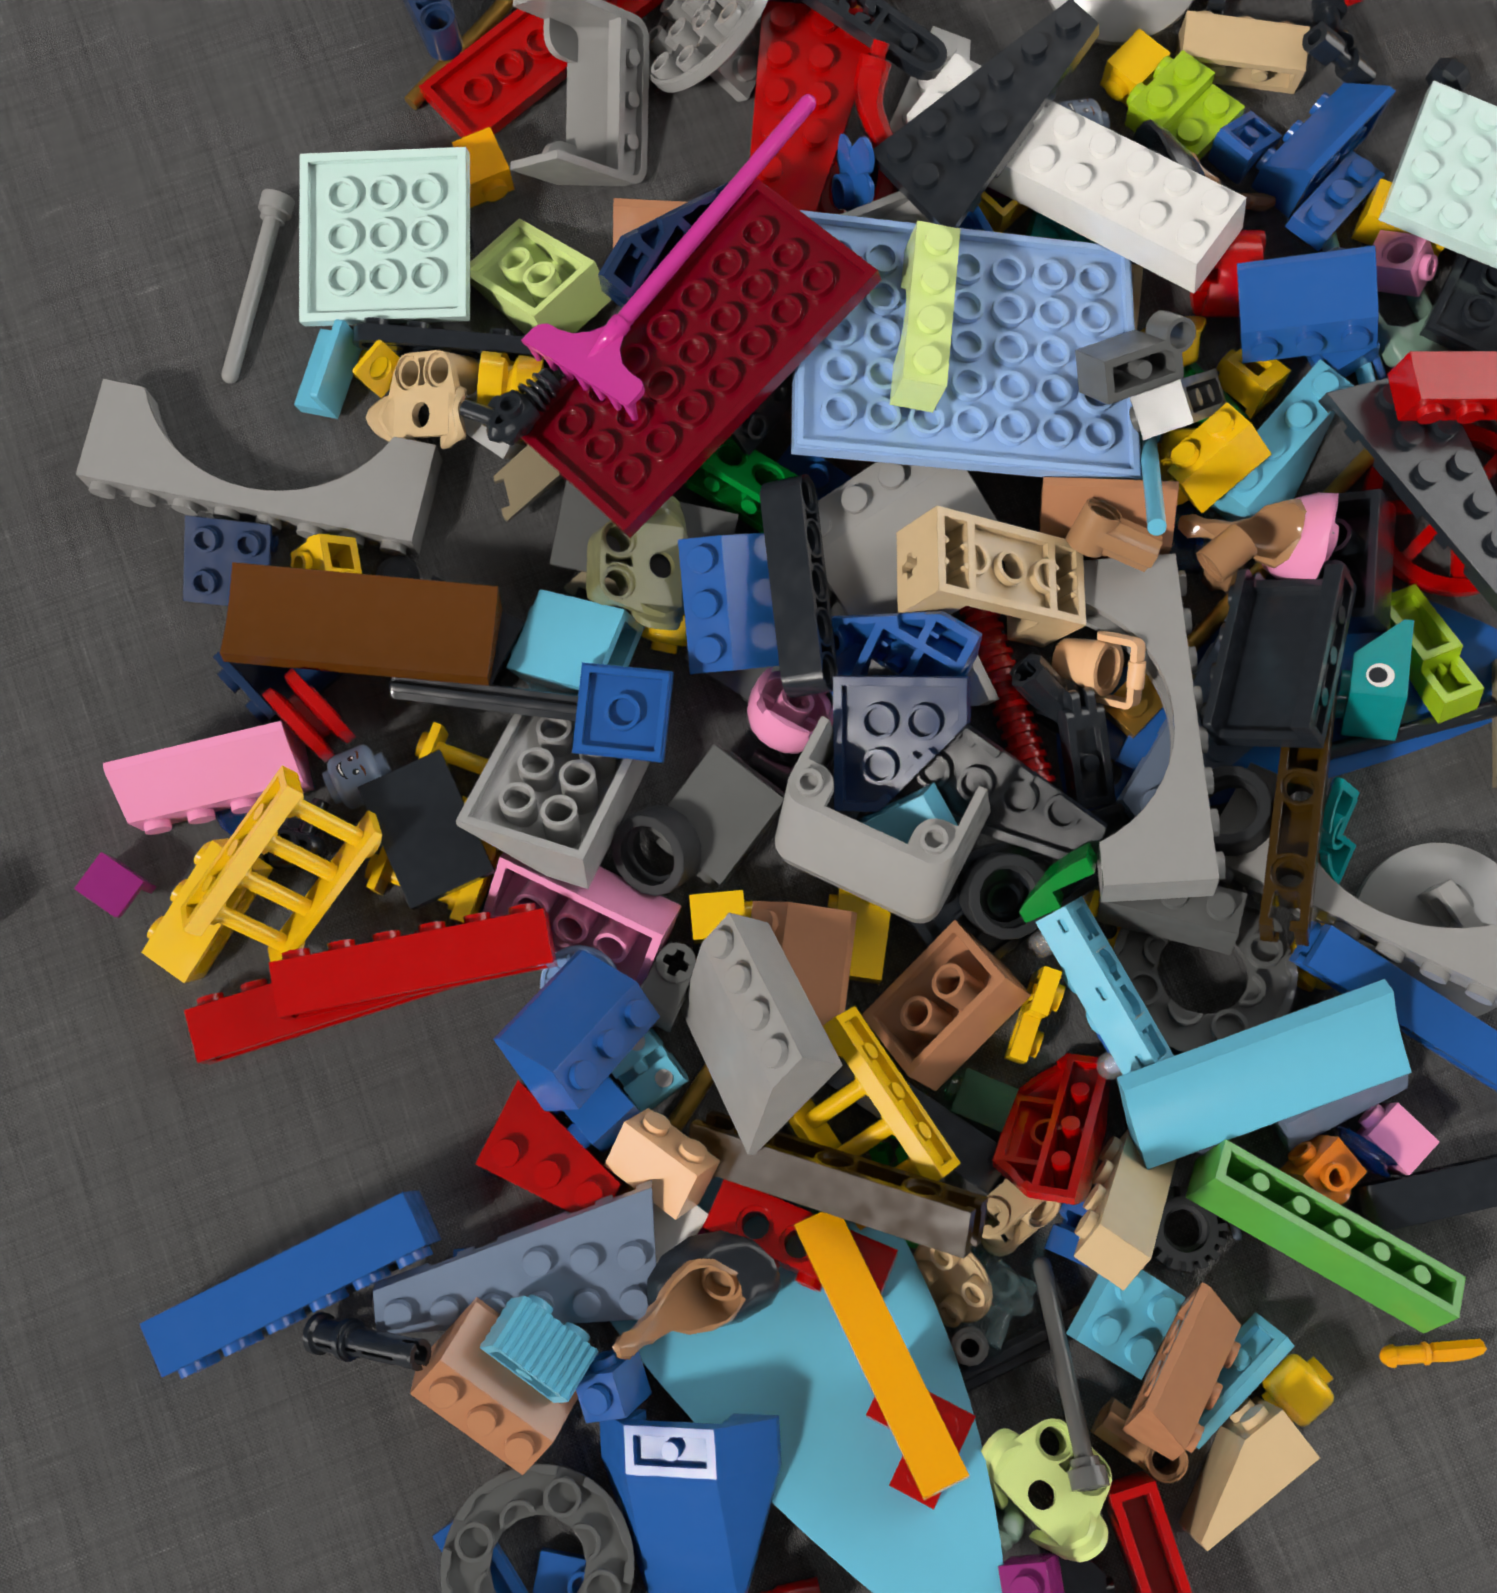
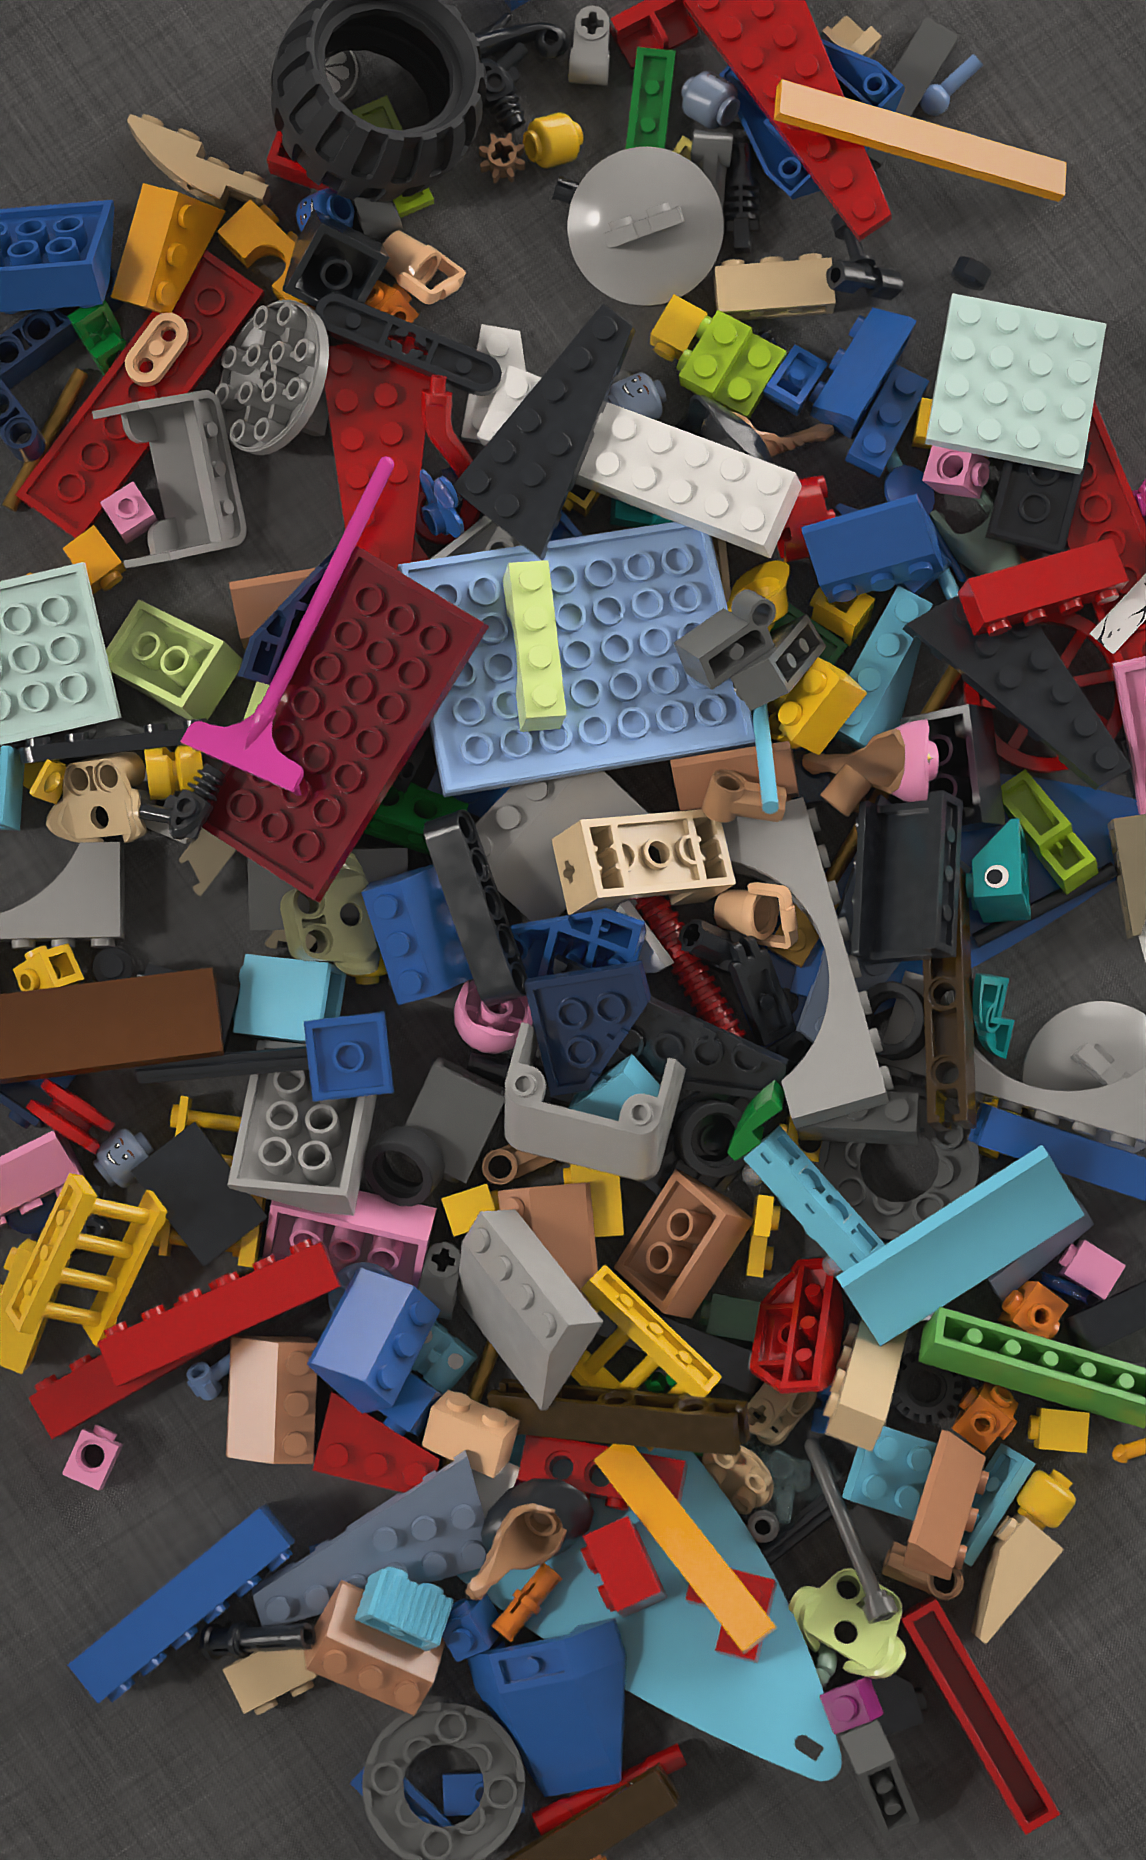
camera: 15 degrees left, 5 degrees up
(221, 1101) = (80, 1470): none -> bright pink brick
(365, 1389) = (266, 1676): none -> tan brick
(384, 1037) = (205, 1379): none -> medium blue bar
(449, 1075) = (271, 1400): none -> nougat slope
(529, 124) = (129, 512): none -> bright pink brick
(681, 1372) = (526, 1602): none -> orange pin
(786, 877) = (521, 1163): none -> medium nougat piece
(801, 1357) = (624, 1567): none -> red brick
(1248, 1276) = (986, 1415): none -> orange brick
(1327, 1312) = (1059, 1429): none -> yellow brick

